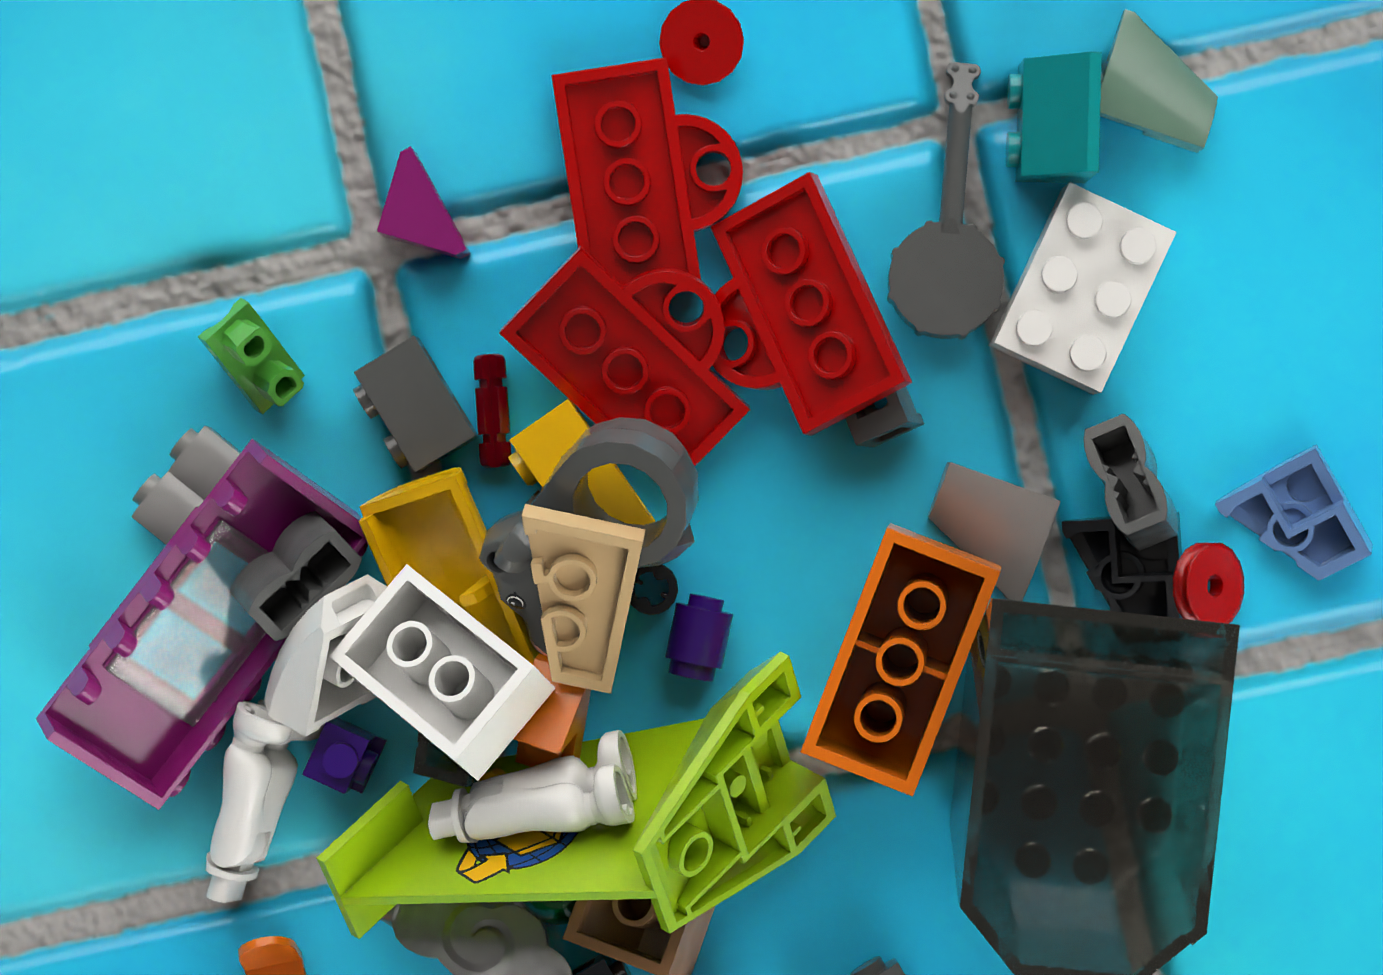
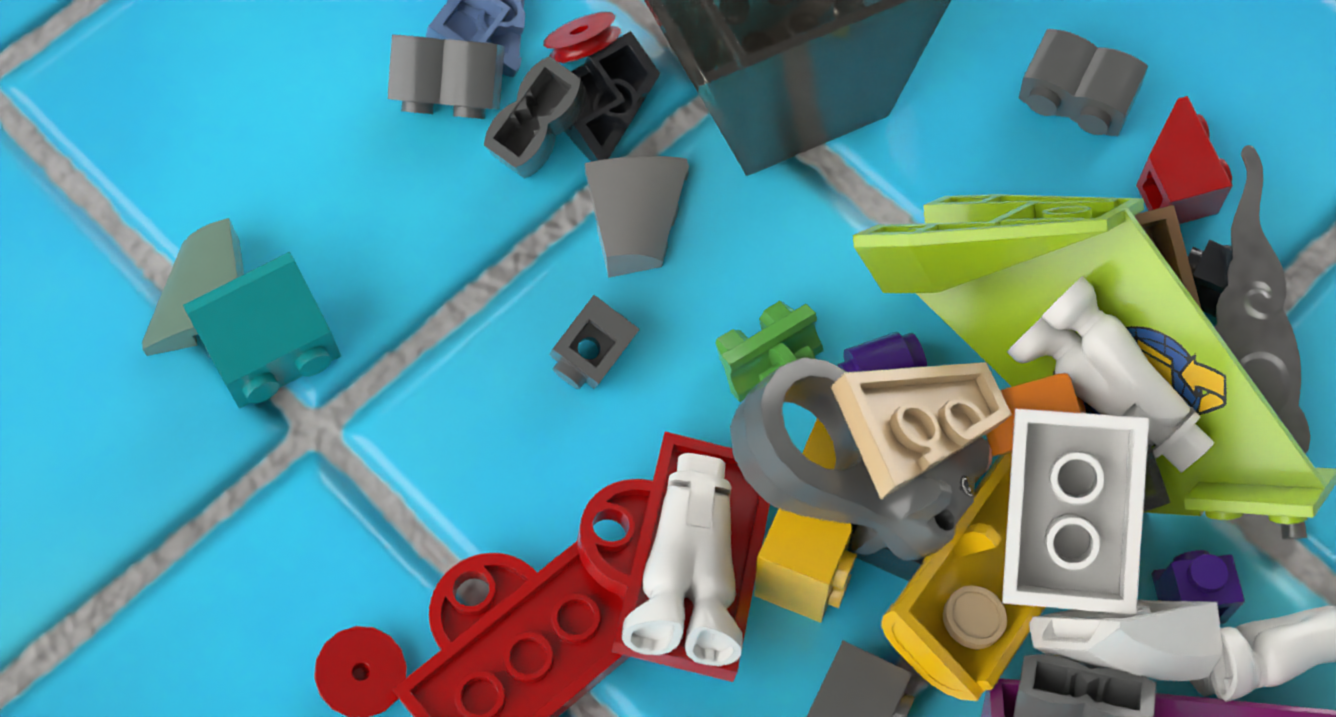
camera: 120 degrees left, 25 degrees down
(426, 549) = (974, 617): none -> tan piece
(492, 410) = (807, 654): dark red axle -> none
(606, 350) = (692, 562): none -> white piece
(764, 552) = (783, 339): none -> bright green hips
(803, 309) = (549, 436): red plate -> none
(901, 659) = (789, 182): orange brick -> none
(947, 272) = (449, 354): dark grey piece -> none
(1082, 288) = (400, 245): white brick -> none
(1243, 431) = (445, 73): none -> dark grey brick

